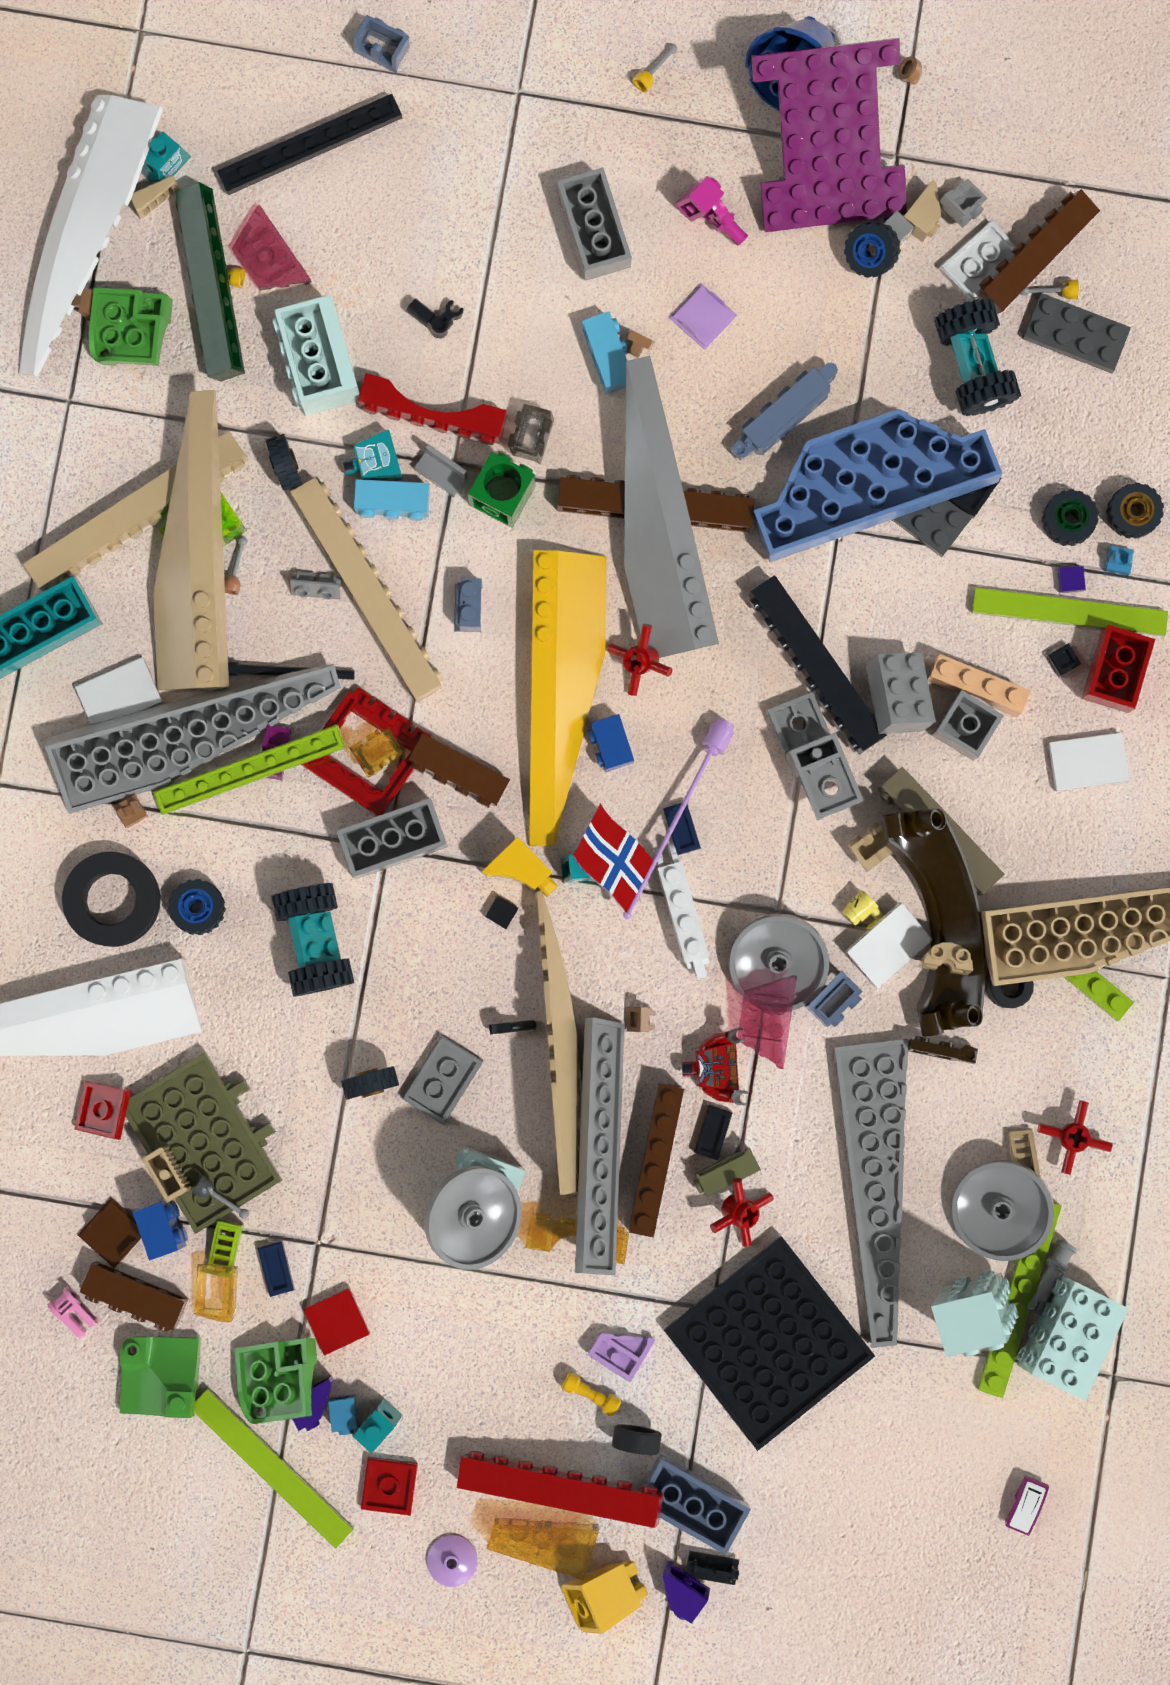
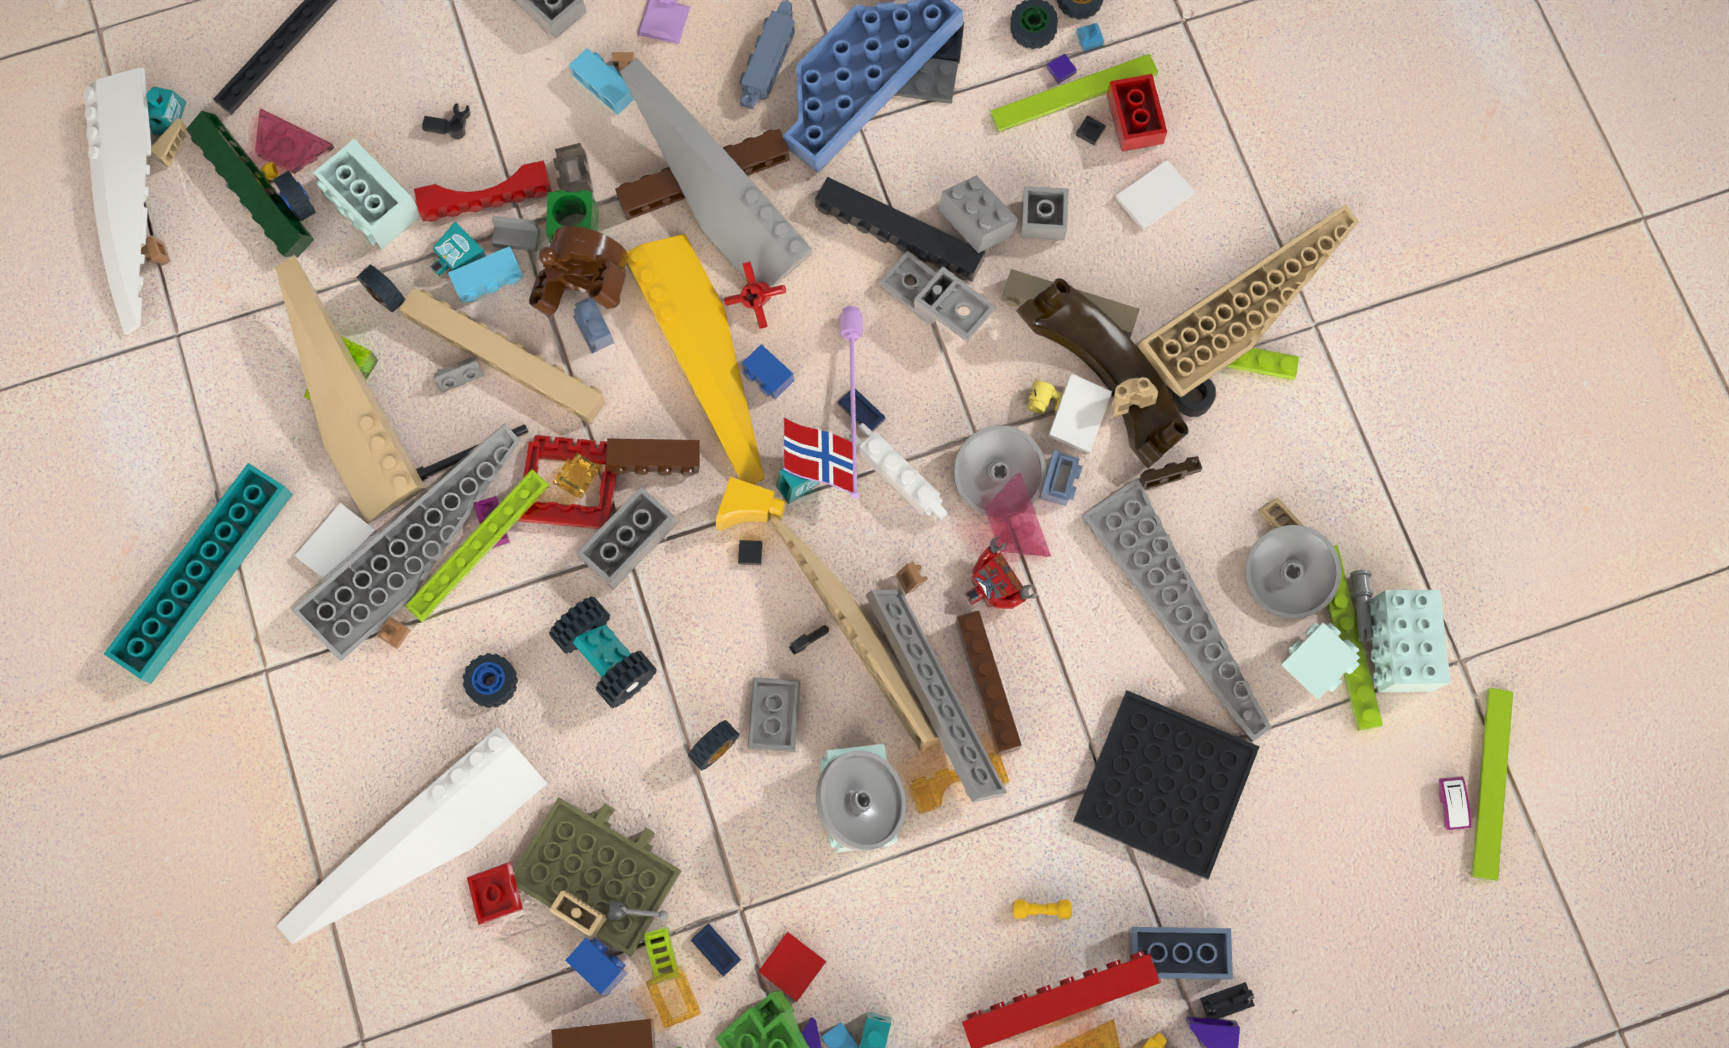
camera: 20 degrees left, 10 degrees down
(76, 894) = (389, 689): black tyre -> none
(111, 1232) = (557, 997): reddish brown piece -> none
(119, 523) = (267, 405): tan brick -> none
(128, 326) = (197, 249): bright green slope -> none
(232, 583) = (386, 405): hinge -> none
(246, 320) = (294, 195): none -> black wheel
(488, 545) = (579, 262): none -> reddish brown piece
(621, 1353) = (1048, 860): lavender wing -> none
(636, 1439) = (1102, 924): black tyre -> none
(713, 1132) = (1022, 637): black tile -> none
(720, 1174) = (1051, 662): olive window -> none
(741, 1212) = (1082, 687): red bar -> none
(871, 848) = (1023, 344): tan cylinder -> none
(993, 690) = (1010, 181): light nougat arch -> none
(1073, 1506) = (1492, 784): none -> lime tile
(1084, 1140) = (1313, 492): red bar -> none

